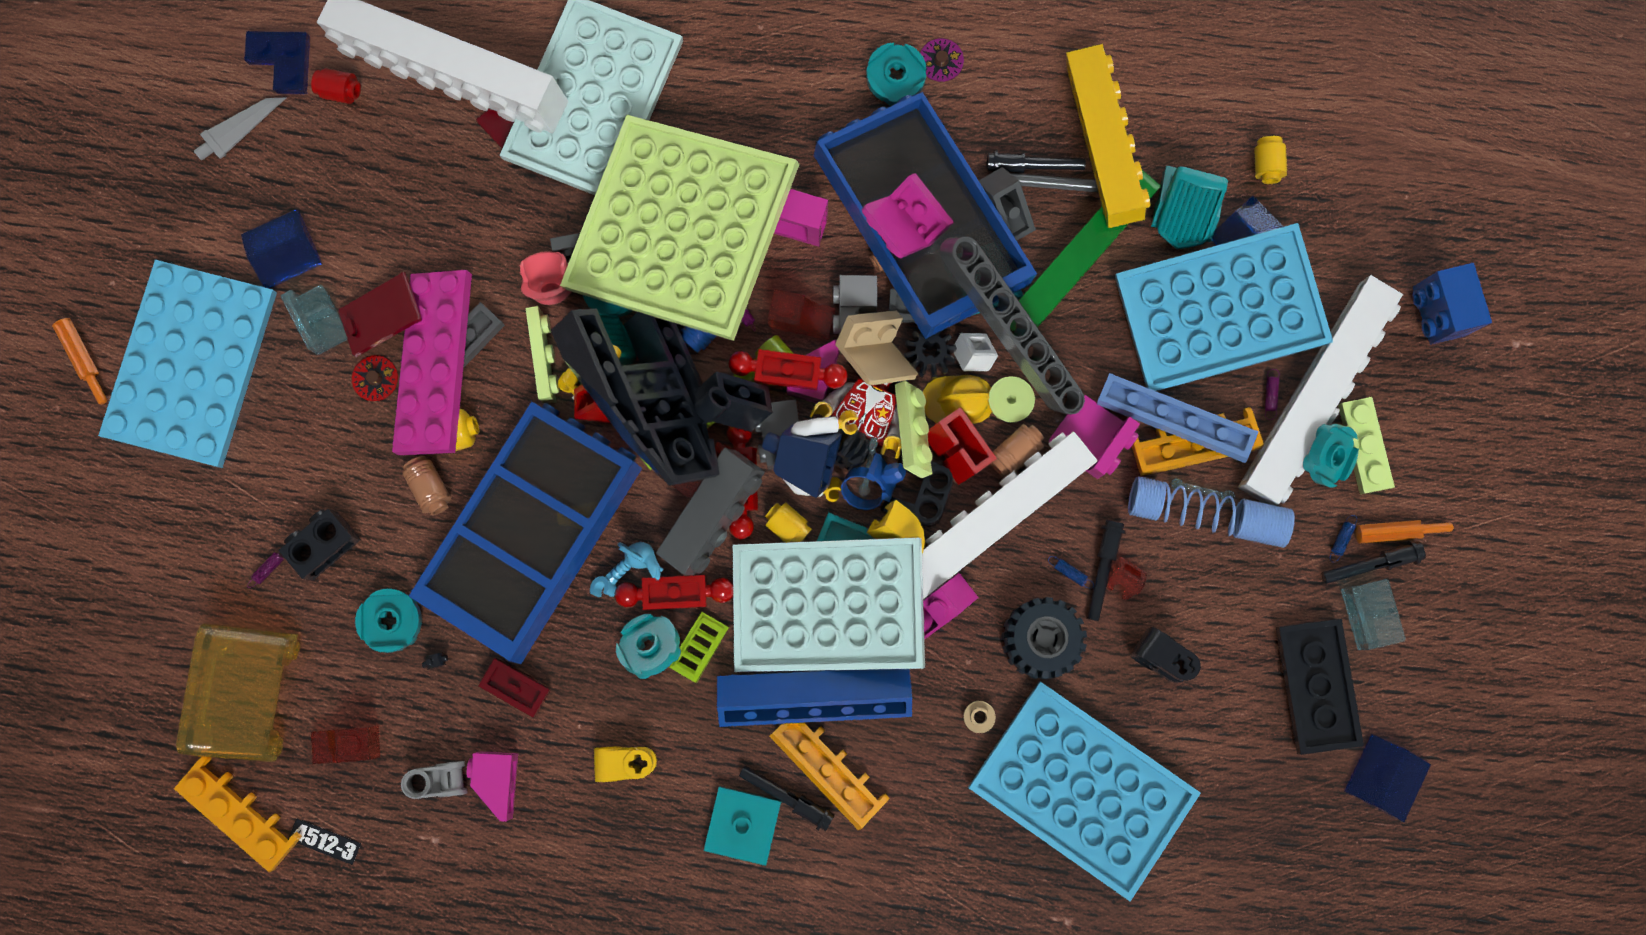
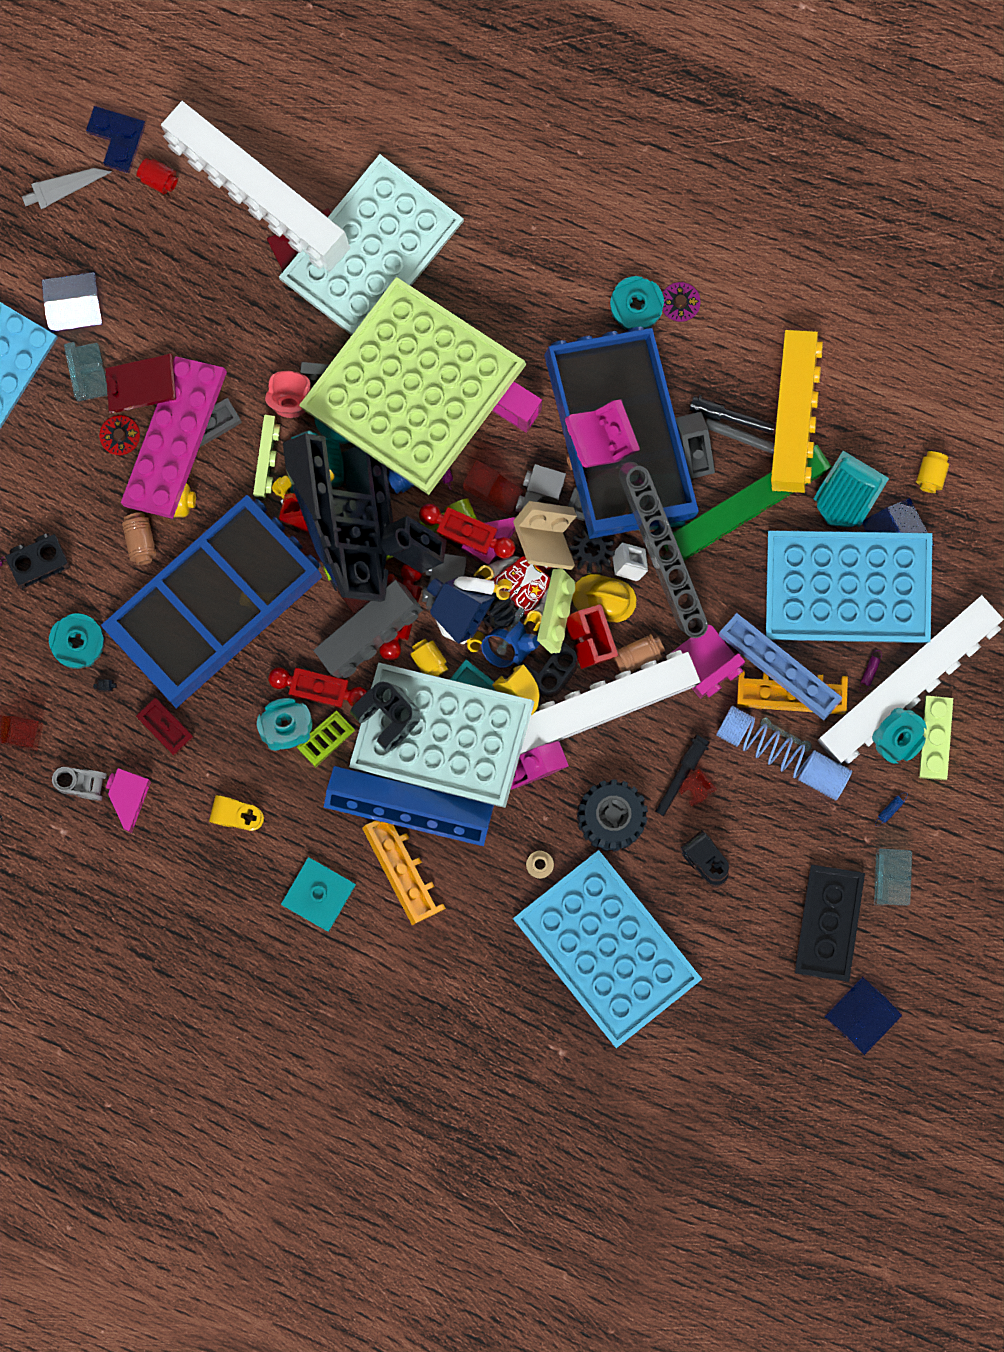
camera: 15 degrees right, 0 degrees up
(637, 555) = (297, 648): medium azure piece -> none
(764, 594) = (373, 701): none -> black piece
(801, 805) = (371, 892): black pin -> none
(1011, 399) = (648, 610): yellowish green piece -> none
(1071, 572) = (653, 769): blue piece -> none
(1392, 558) = (924, 837): black pin -> none
(1398, 531) = (939, 816): orange axle -> none

